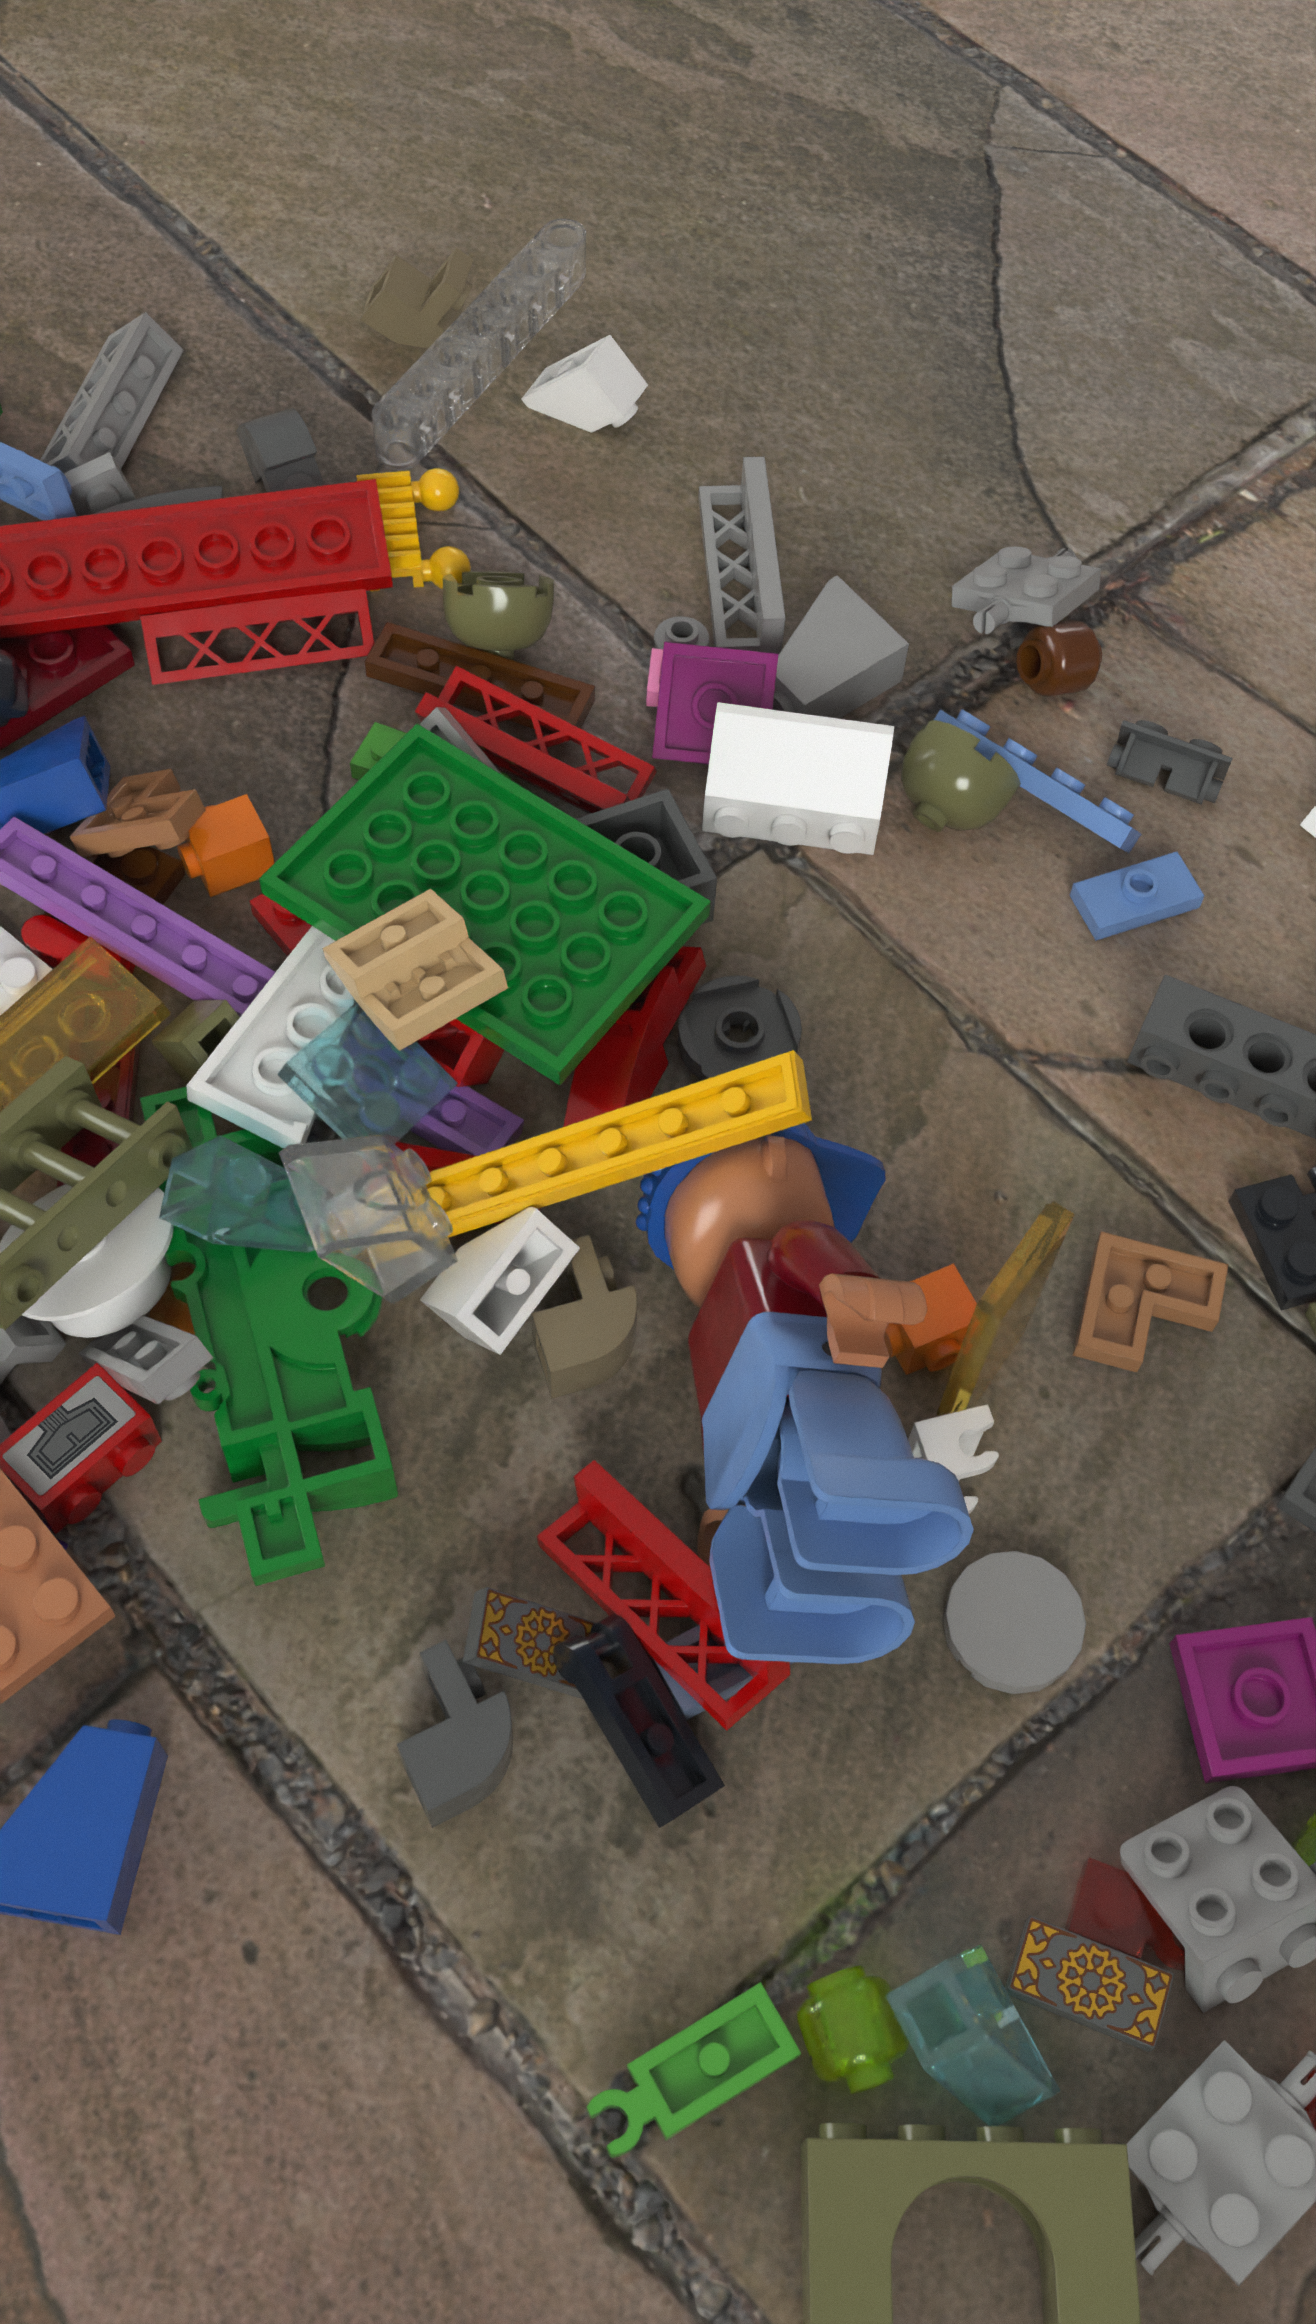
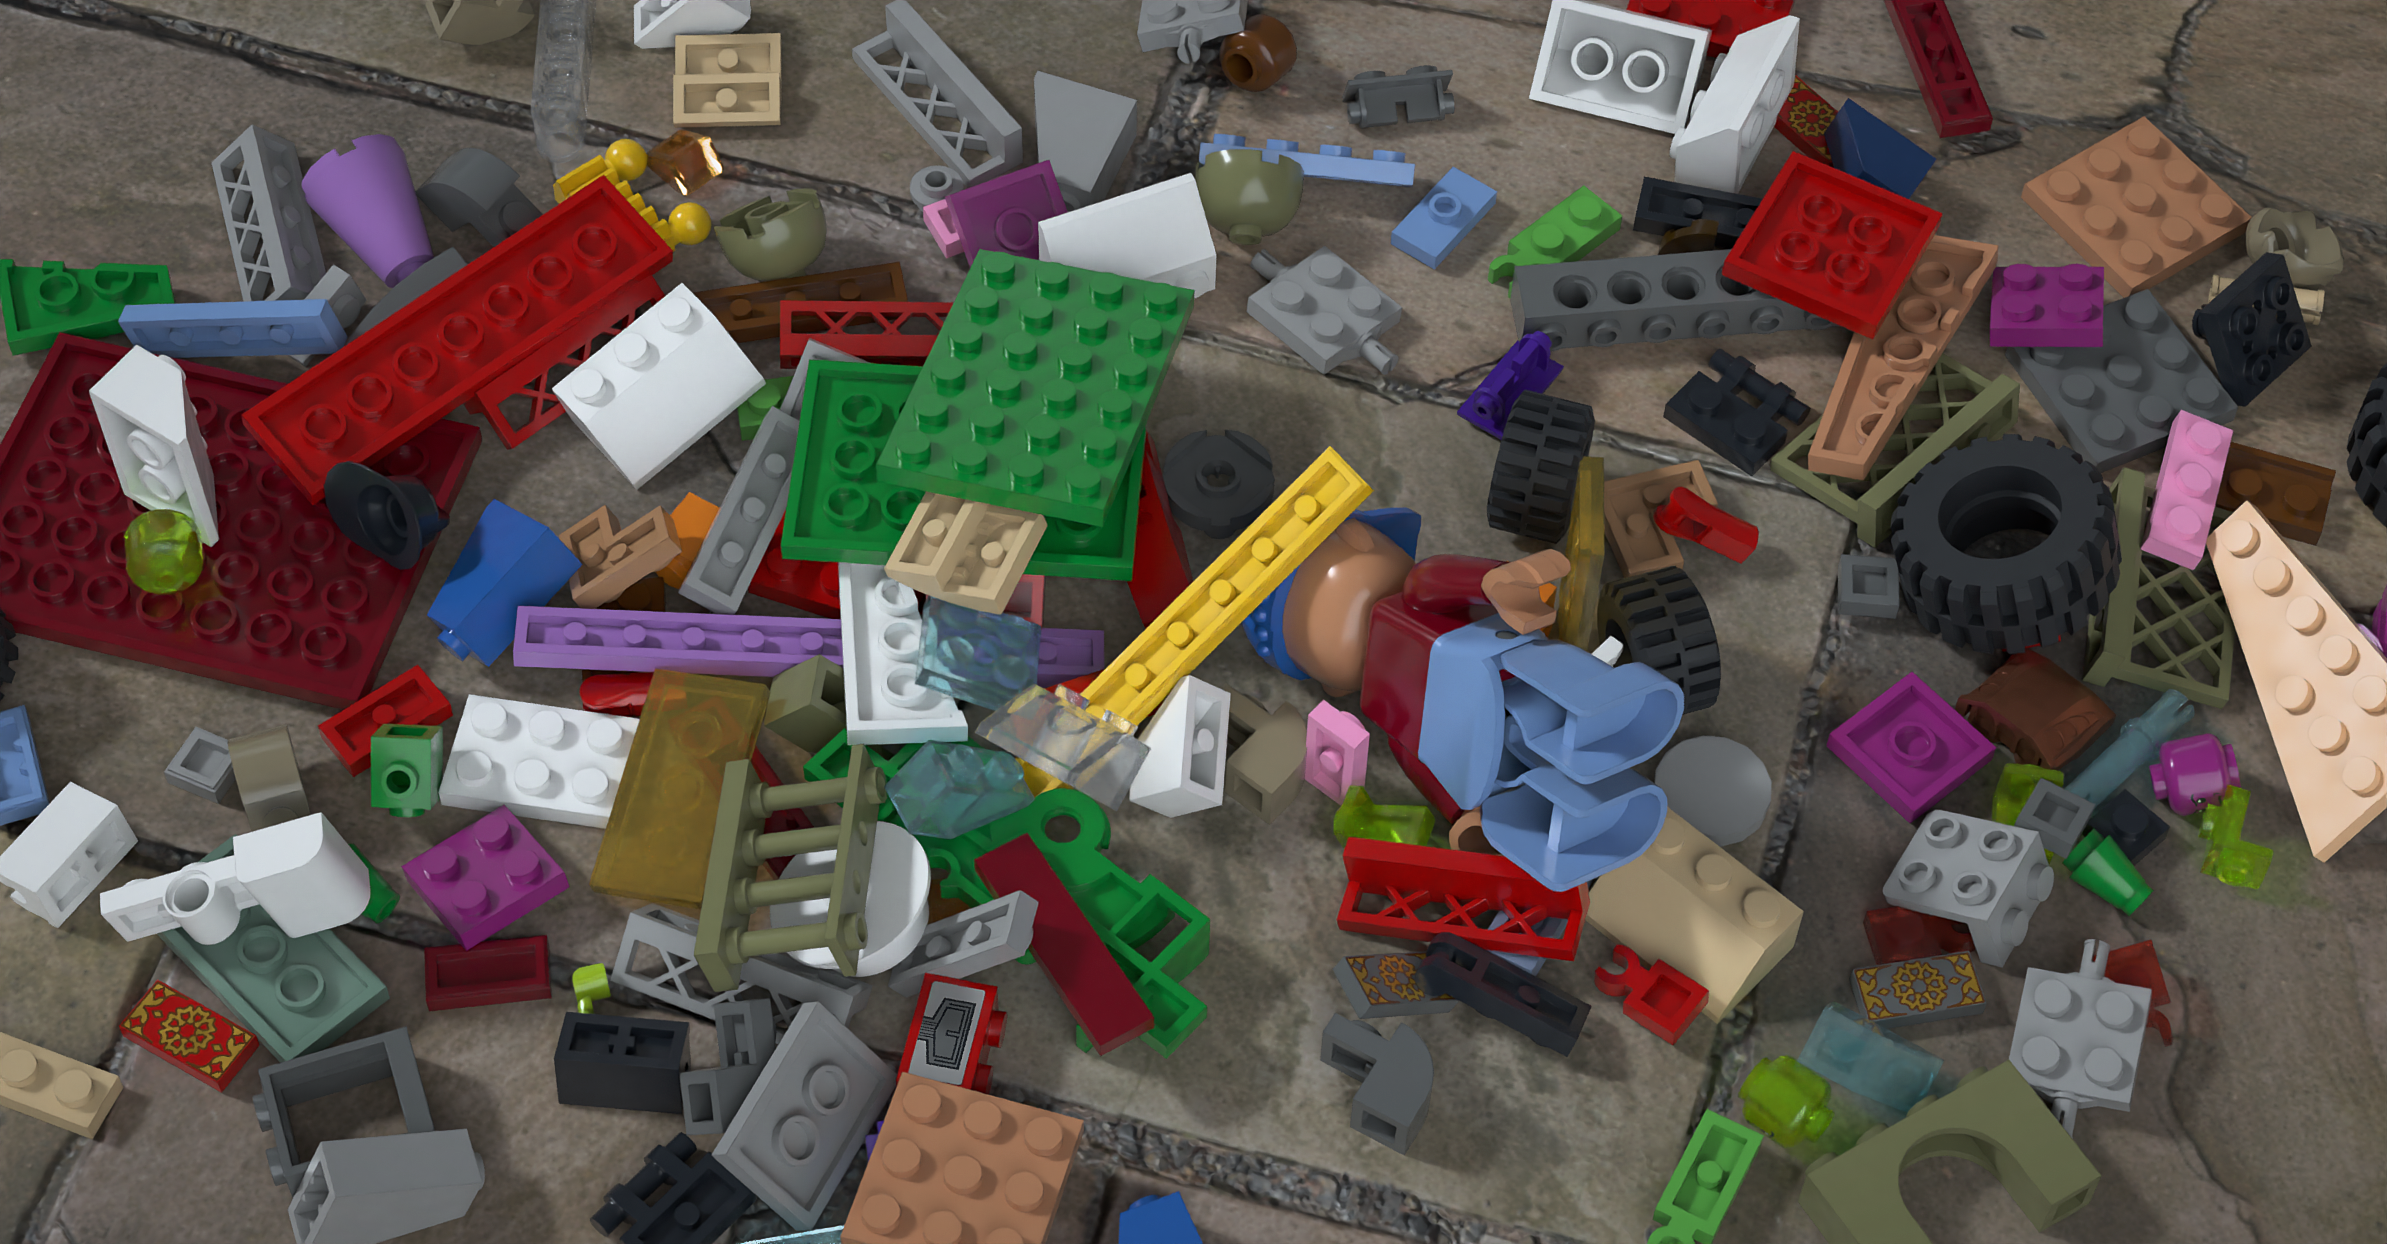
camera: 30 degrees left, 5 degrees down
(189, 417) = (372, 206): none -> medium lavender cone
(227, 872) = (745, 519): none -> light grey fence
(229, 1415) = (1068, 947): none -> dark red tile
(298, 688) = (658, 386): none -> white slope
(486, 515) = (685, 161): none -> clear orange slope
(573, 464) = (727, 80): none -> tan slope
(593, 855) = (1037, 387): none -> green plate
(644, 1366) = (1335, 751): none -> bright pink plate
(644, 1464) = (1389, 823): none -> clear neon green bracket
(800, 1818) = (1656, 998): none -> red plate
(897, 1756) = (1697, 914): none -> tan slope
(958, 926) = (1324, 310): none -> light grey plate
(1047, 1438) = (1665, 627): none -> black tyre
(1056, 1158) = (1539, 466): none -> black tyre
(1090, 1092) = (1522, 368): none -> dark purple hinge
(1190, 1337) = (1707, 525): none -> red bar
(1241, 969) = (1560, 235): none -> bright green plate

